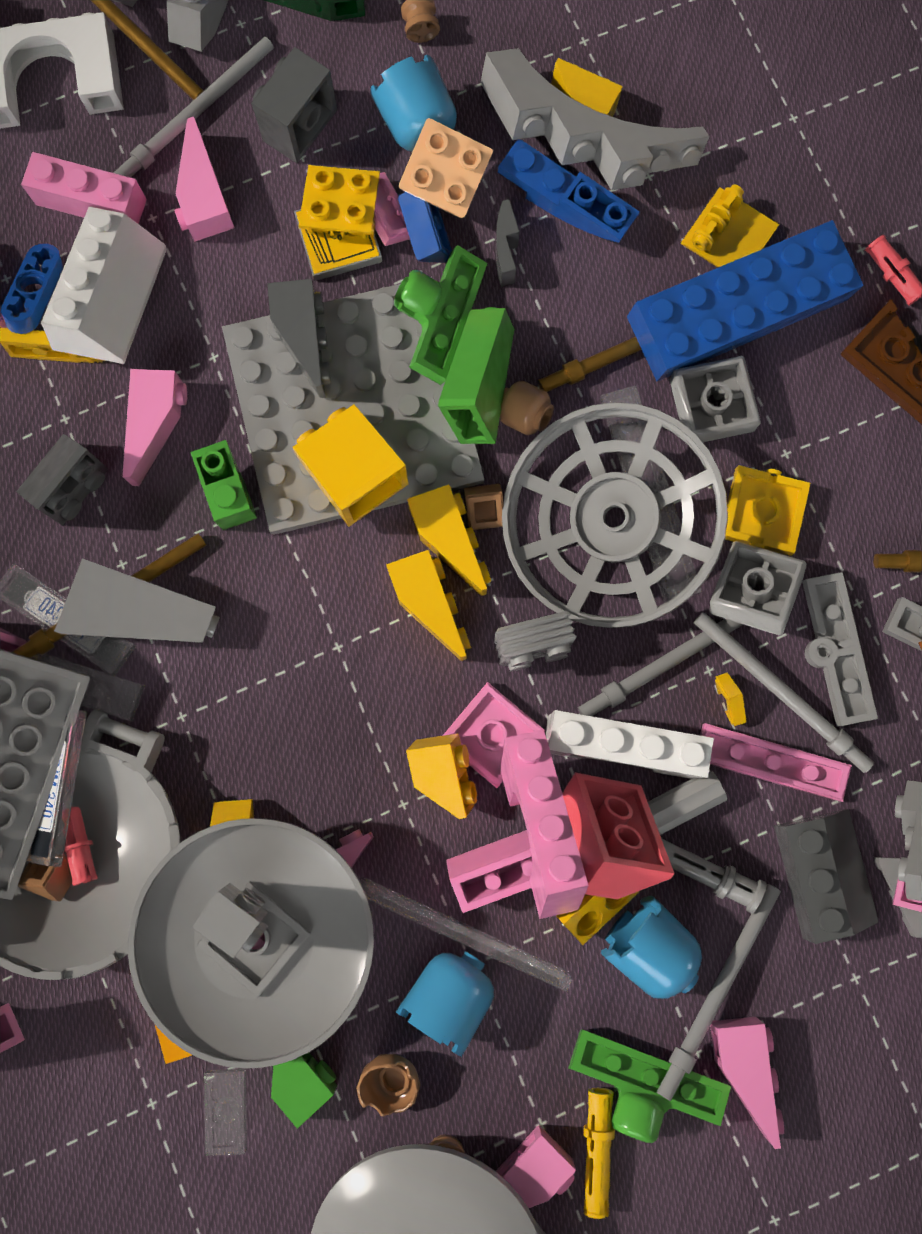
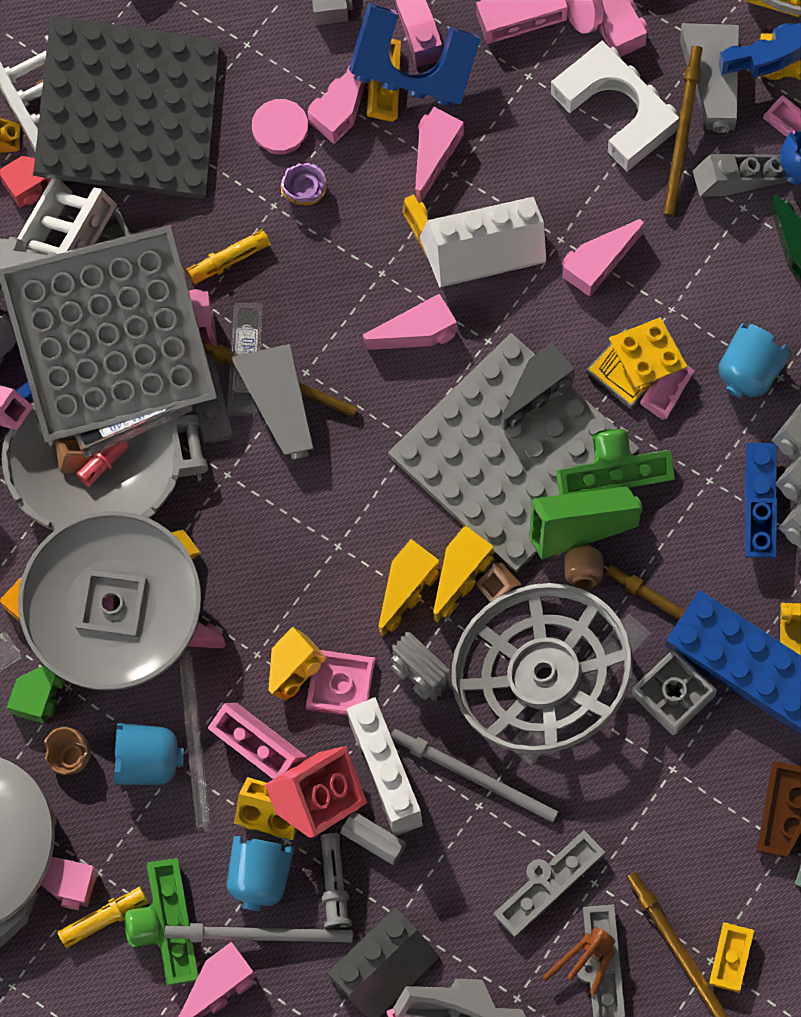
camera: 65 degrees right, 10 degrees down
(37, 301) = (447, 205): blue beam -> none
(63, 480) = (337, 299): dark grey slope -> none
(75, 187) = (546, 185): bright pink brick -> none
(143, 155) = (599, 206): light grey bar -> none
(223, 485) = (398, 403): bright green slope -> none
(233, 920) = (118, 573): light grey brick -> none
(294, 104) = (696, 282): dark grey brick -> none
(351, 463) = (463, 473): yellow slope -> none
(425, 229) = (673, 421): blue slope -> none
(445, 168) = (715, 408): light nougat bracket -> none
(506, 239) = (700, 478): dark grey slope -> none
(532, 782) = (312, 717): bright pink arch -> none
(734, 698) = (465, 829): yellow tile -> none
(761, 609) = (570, 799): light grey brick -> none
(766, 509) = (617, 774): yellow plate -> none
(777, 763) = (440, 885): bright pink tile -> none
(837, 740) = (484, 921): light grey bar -> none

